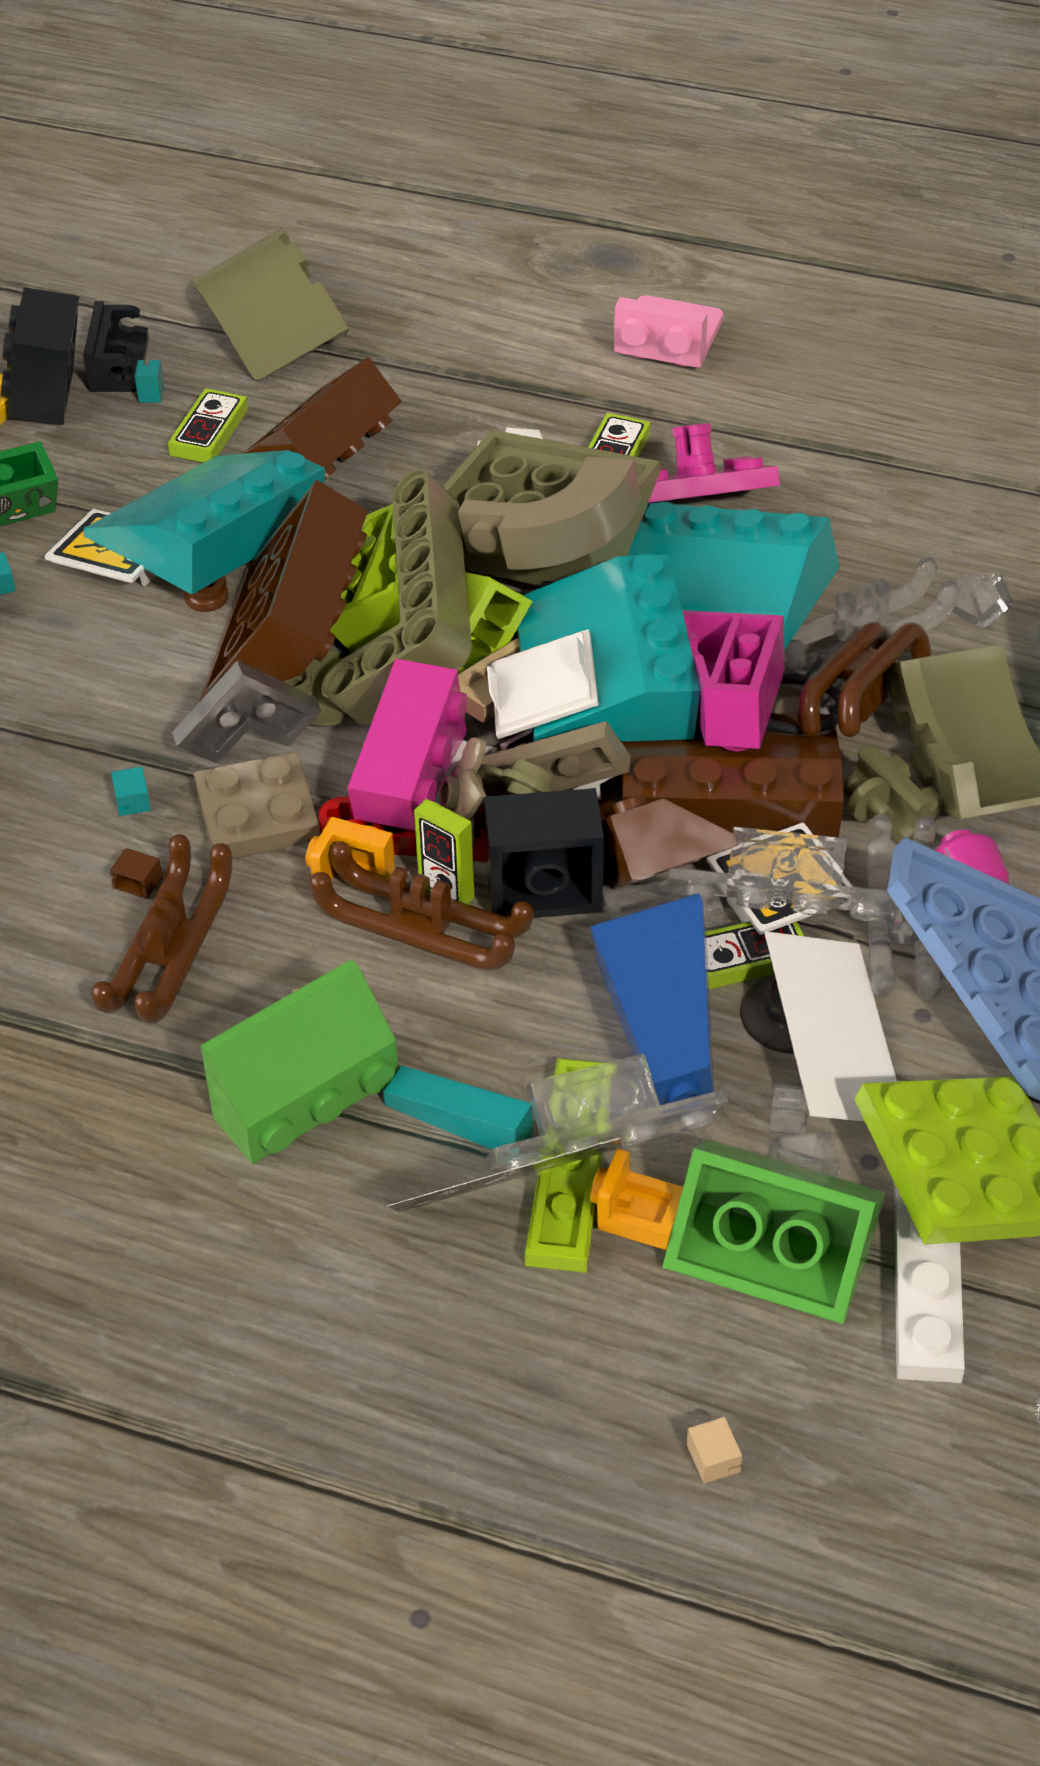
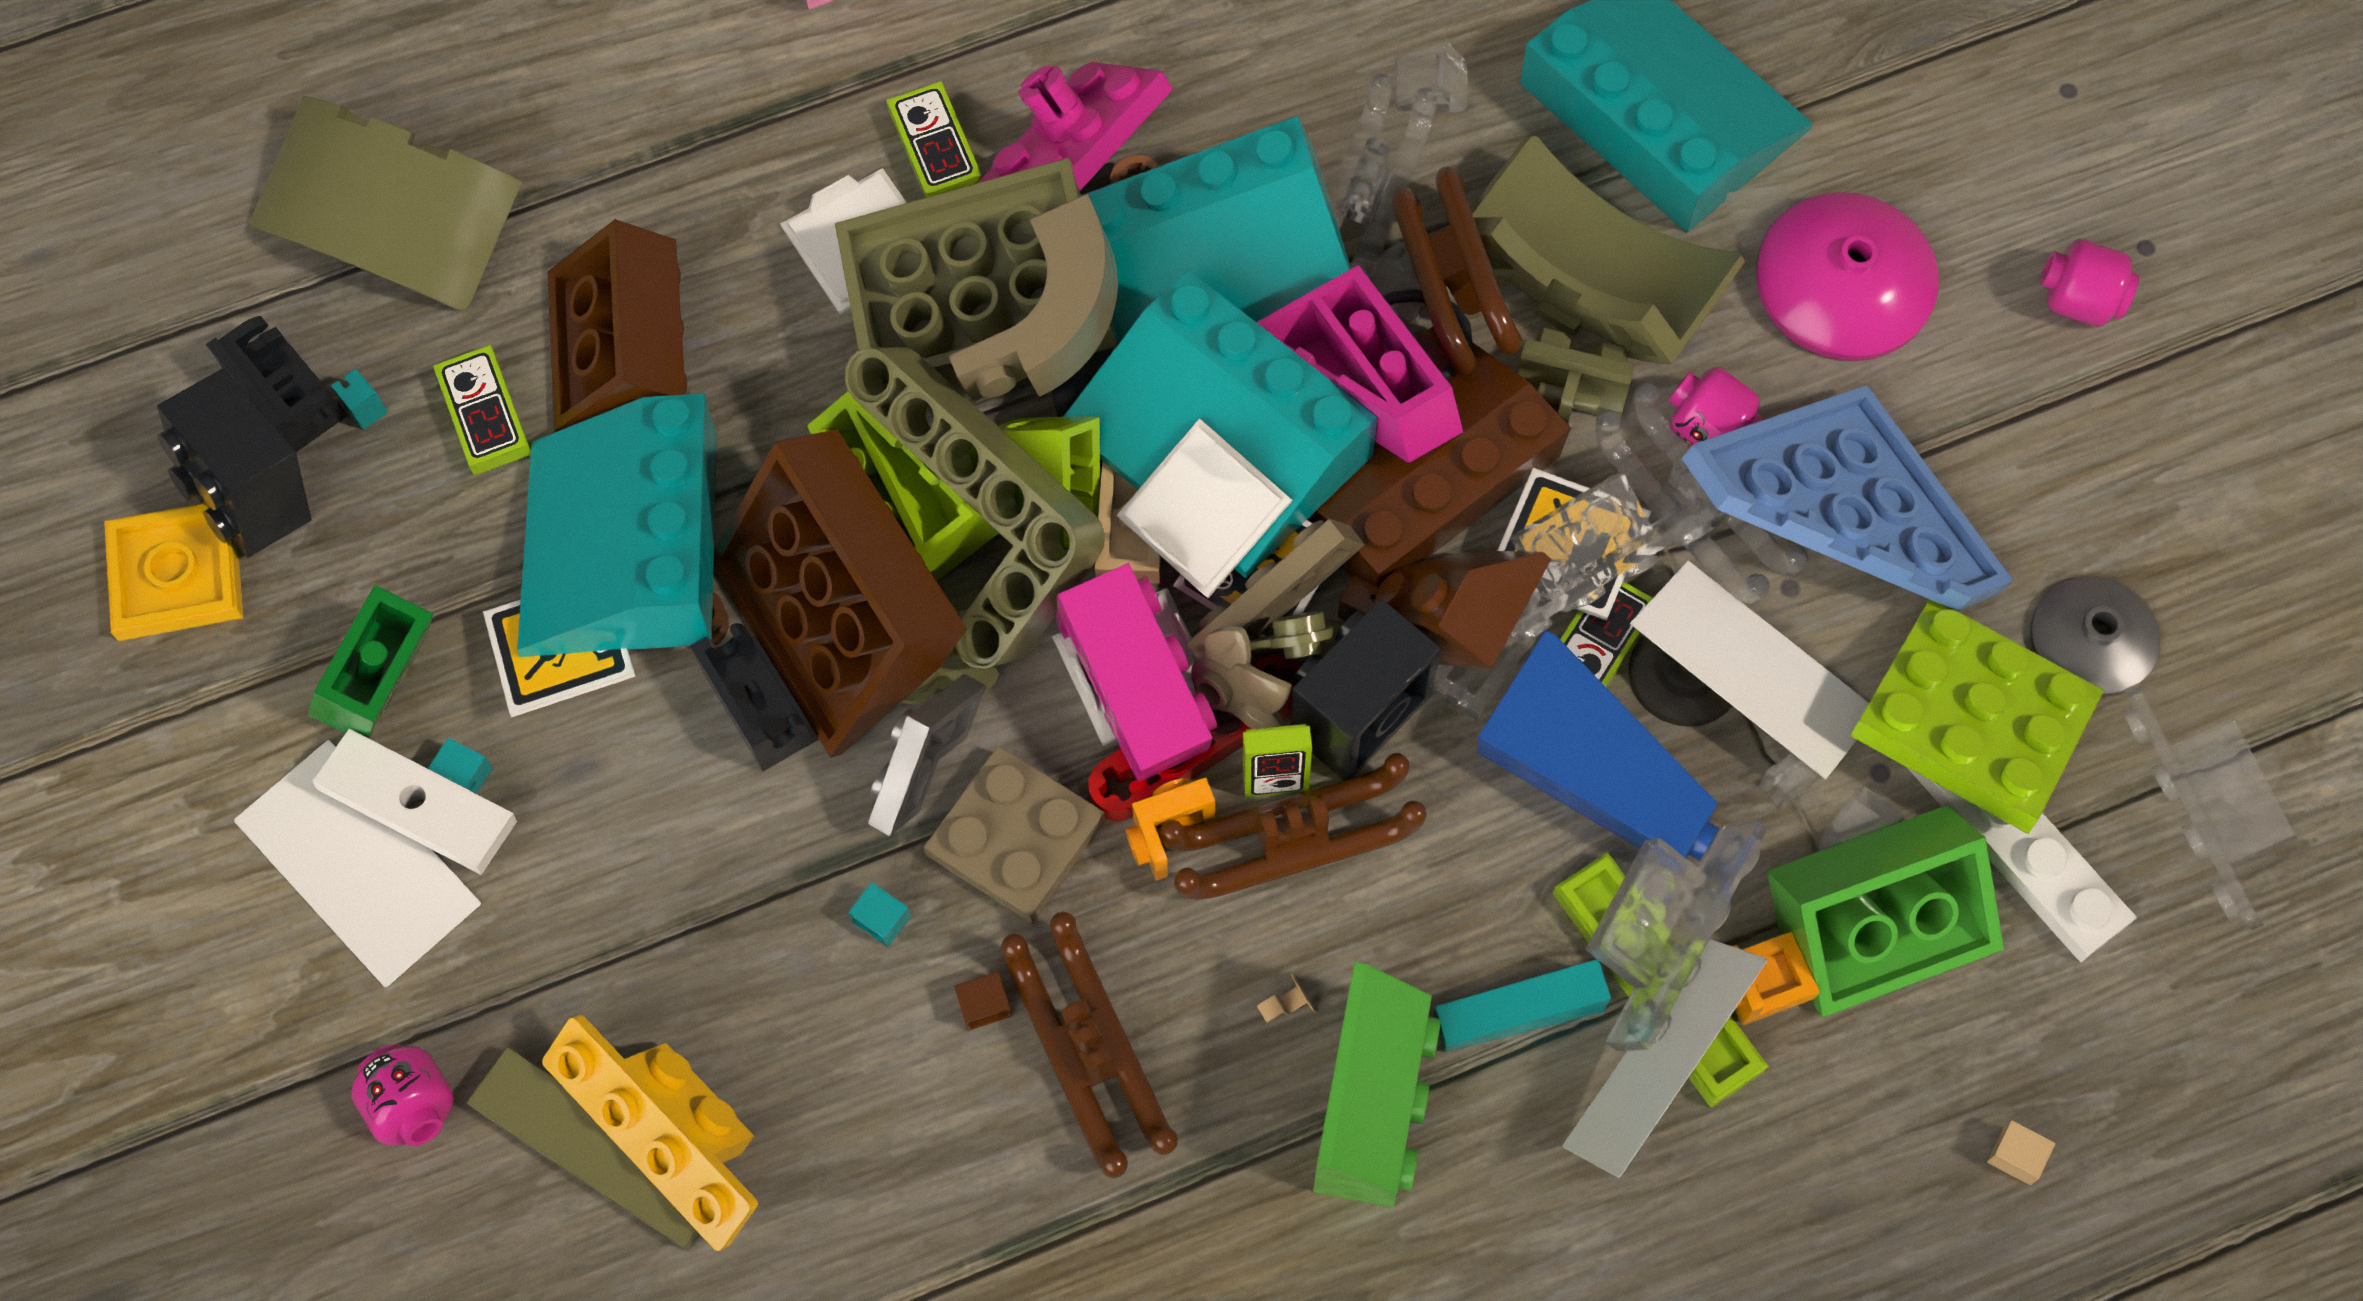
camera: 40 degrees left, 20 degrees up
(186, 638) = (754, 697): none -> black hinge

